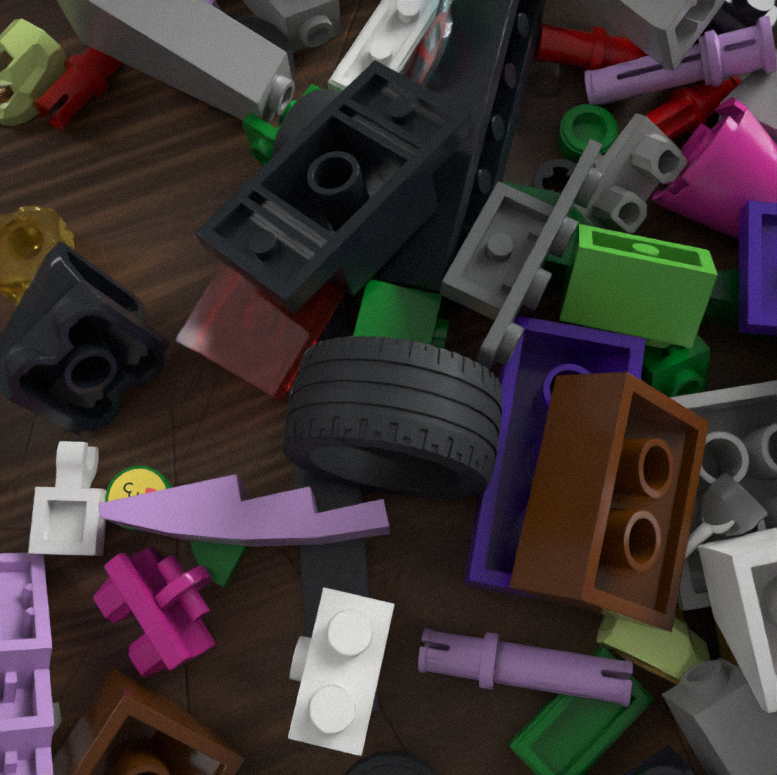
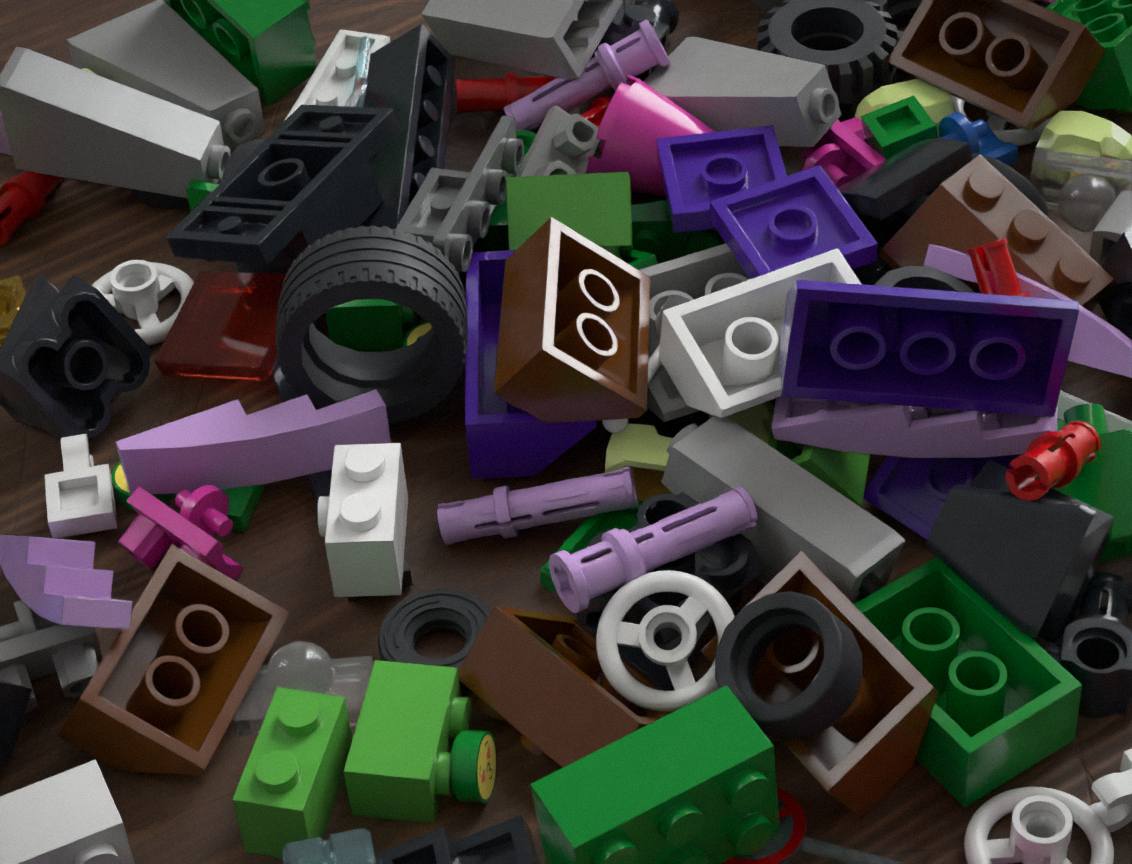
camera: 10 degrees left, 30 degrees down
(154, 228) = (136, 293): none -> white piece

